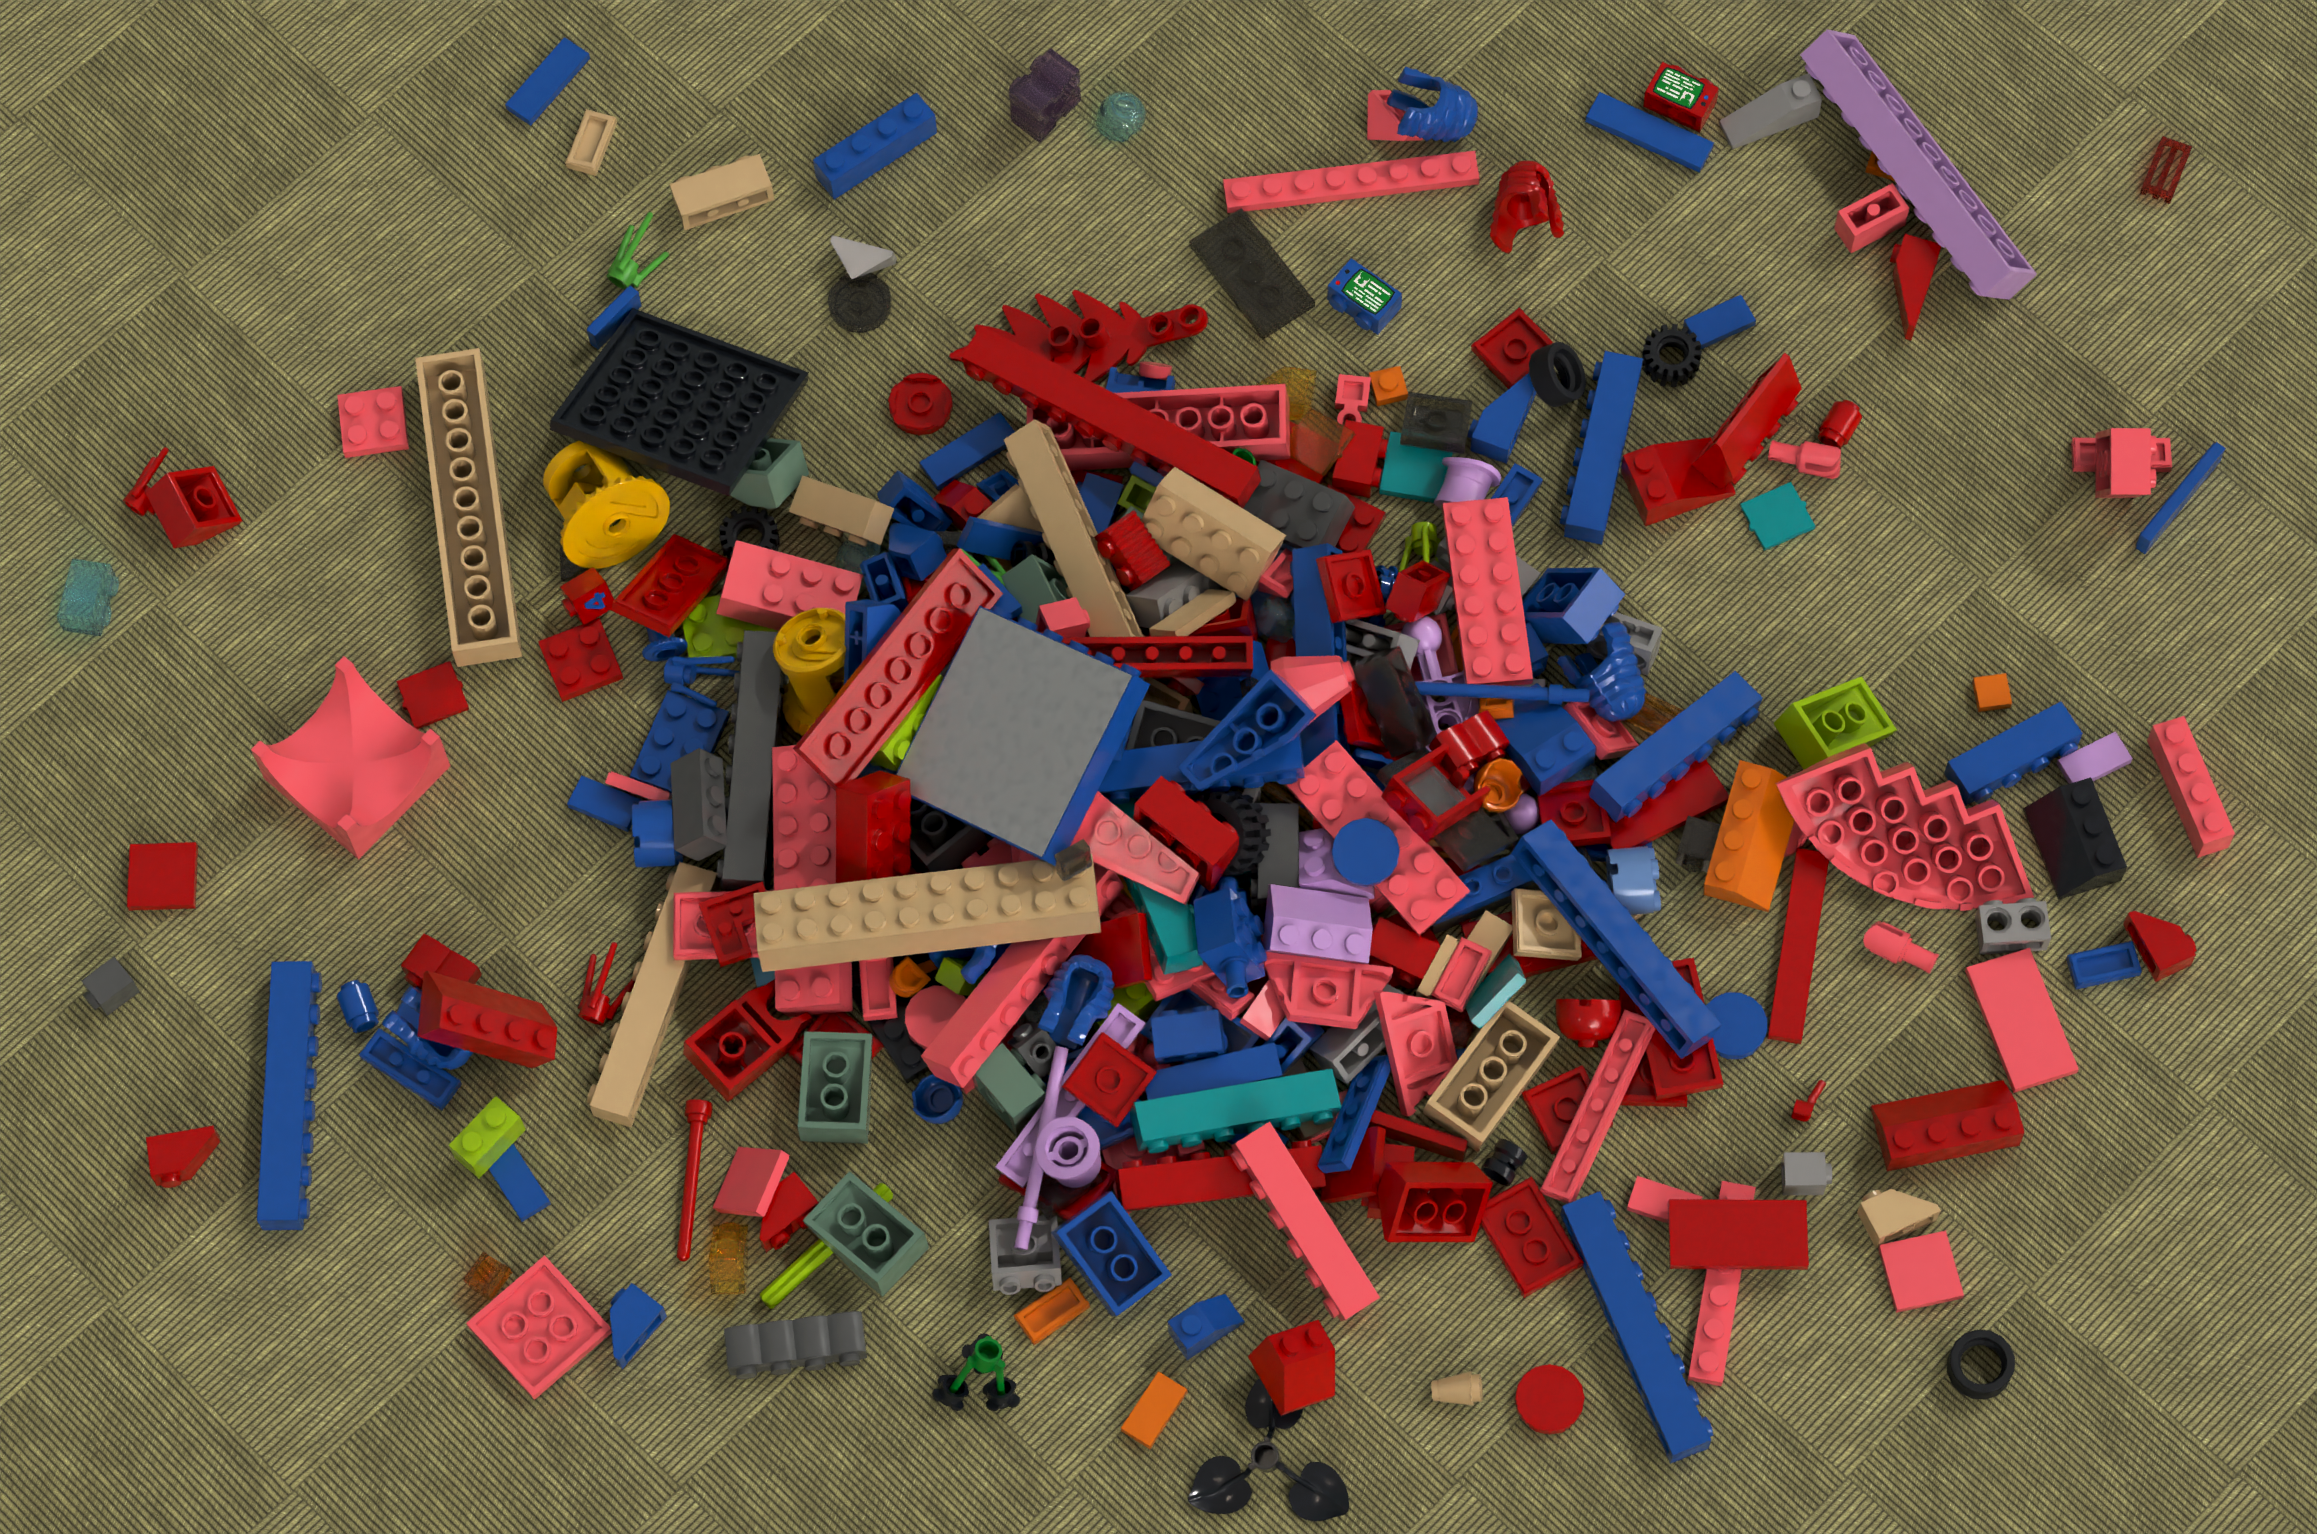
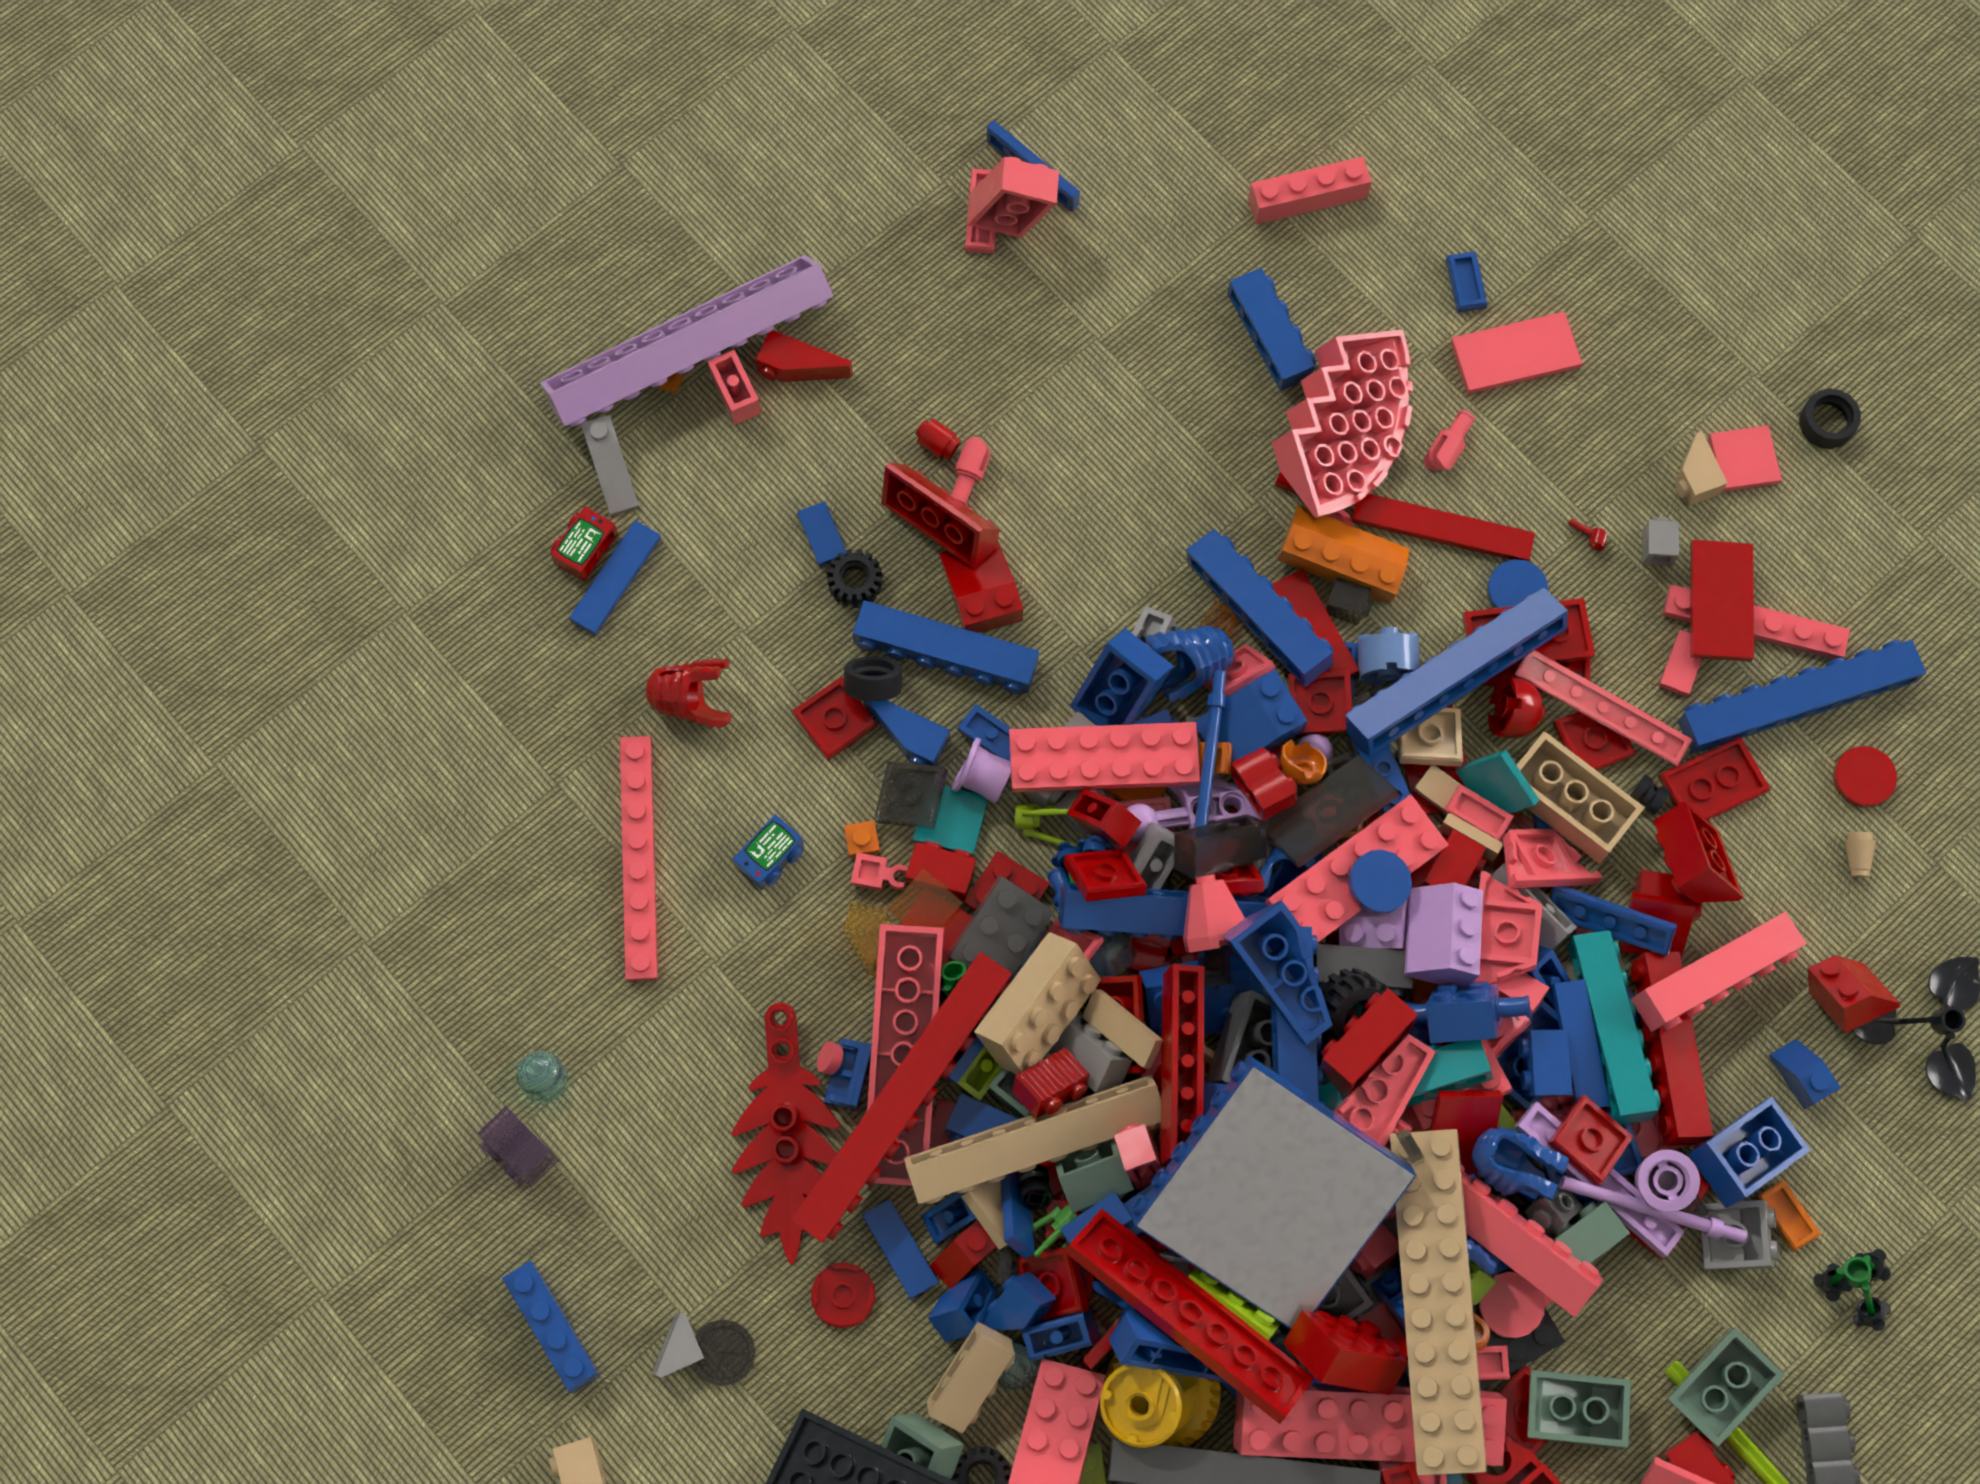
camera: 90 degrees left, 5 degrees up
(937, 1100) = (1593, 1317): blue hair -> none
(1154, 1410) = (1882, 1126): orange tile -> none
(1252, 273) = (729, 959): clear smoke tile -> none
(1384, 119) = (576, 815): coral slope -> none
(1420, 1136) = (1625, 863): red tile -> none
(1430, 796) = (1330, 813): red window -> none
(1448, 120) = (588, 773): blue hair -> none
(1777, 516) = (1021, 504): teal piece -> none
(1833, 722) = (1238, 474): lime slope -> none
(1947, 1125) = (1614, 421): red slope -> none
(1992, 692) = (1207, 342): orange tile -> none
(2014, 935) = (1439, 348): light grey brick -> none
(2075, 839) = (1353, 288): black slope -> none
(2095, 759) = (1277, 264): lavender tile -> none
(2157, 191) = (697, 149): clear red tile -> none
(2160, 944) = (1456, 232): red slope -> none

